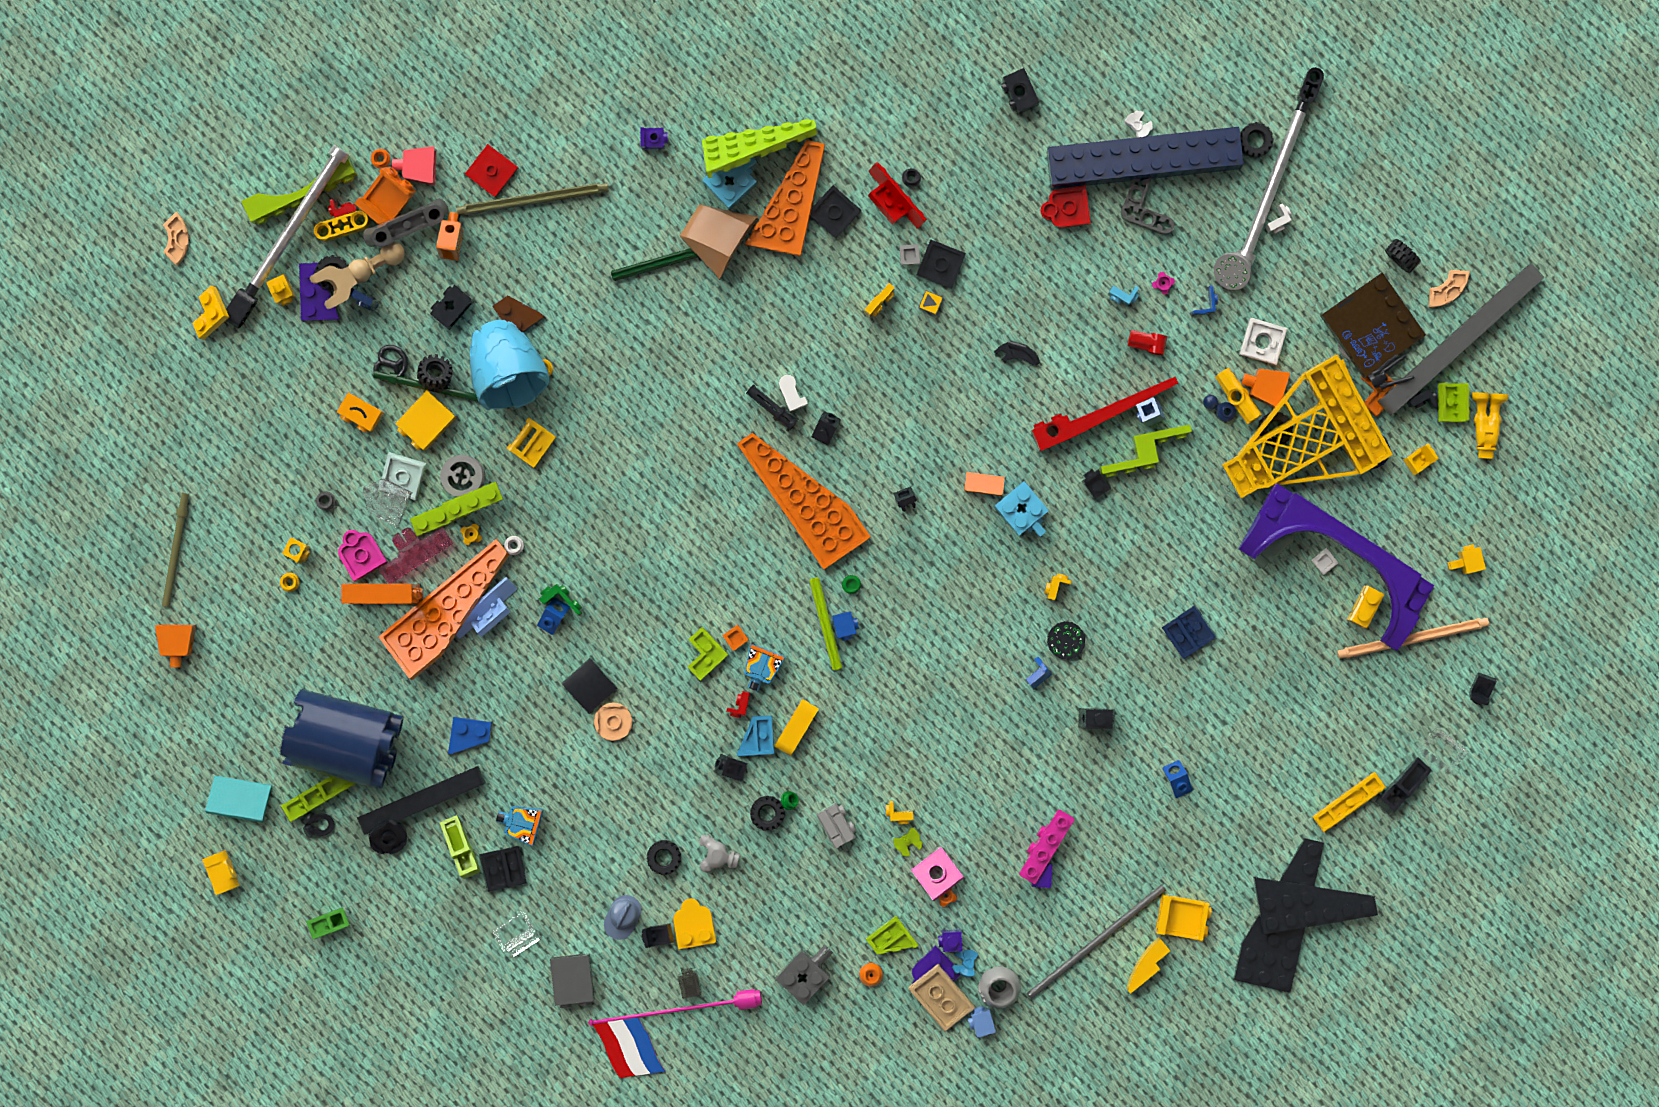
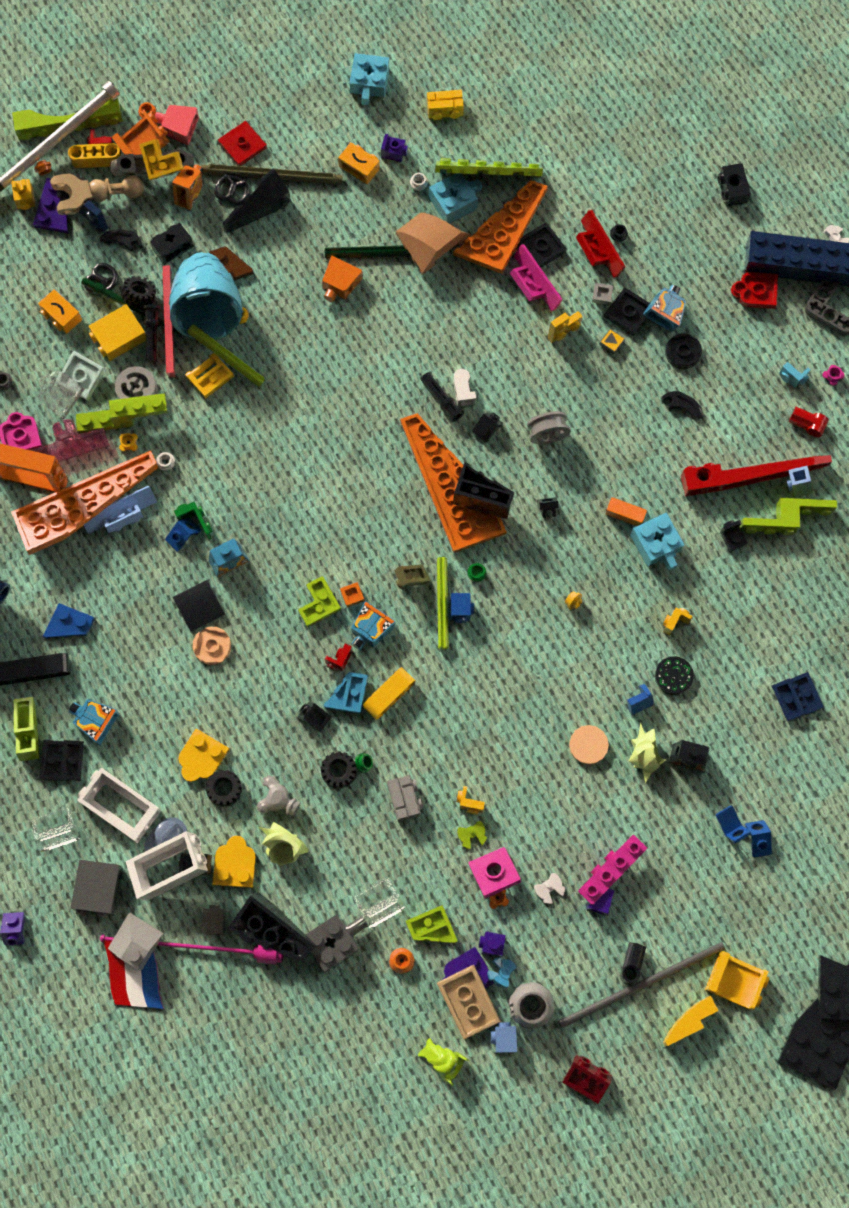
camera: 10 degrees right, 15 degrees down
(291, 253) = (43, 167): none -> orange plate
(397, 309) = (124, 237): none -> black piece
(413, 229) = (158, 165): none -> yellow plate
(458, 404) = (151, 323): none -> black pin
(463, 361) = (169, 328): none -> coral tile
(496, 227) = (232, 189): none -> black piece
(506, 1034) = (12, 928): none -> dark purple bracket
(537, 230) = (265, 200): none -> black wedge
(539, 900) = (102, 778): none -> white piece
(543, 419) = (226, 355): none -> lime axle
(605, 631) = (227, 557): none -> dark azure torso
(605, 950) = (138, 865): none -> white piece
(614, 67) = (369, 76): none -> medium azure hinge
(621, 165) = (359, 163): none -> light orange brick
(622, 1019) = (135, 941): none -> light grey slope
(633, 832) = (201, 756): none -> yellow plate
(636, 304) = (340, 279): none -> orange torso
(686, 163) = (418, 177): none -> white plate
(694, 72) = (445, 104): none -> yellow brick
(734, 899) = (282, 845): none -> yellowish green hair
(743, 977) = (268, 926): none -> black wedge
(789, 606) = (411, 576): none -> olive tile
(833, 256) = (533, 280): none -> dark pink bracket
(838, 508) = (482, 494): none -> black wedge
(842, 934) = (383, 909): none -> clear tile
(887, 419) = (548, 427): none -> light grey wheel
(930, 1054) = (443, 1060): none -> lime hair
(952, 590) = (573, 600): none -> yellow plate
(978, 254) = (666, 308): none -> dark azure torso
(991, 871) = (542, 890): none -> white piece
(998, 729) = (588, 744): none -> light nougat tile
(1005, 294) = (683, 351): none -> black tile
(1055, 725) = (646, 753): none -> yellowish green hair
(1064, 1038) = (587, 1078): none -> dark red bracket
(1083, 922) = (633, 961): none -> black piece
(1149, 774) = (731, 824): none -> blue bracket

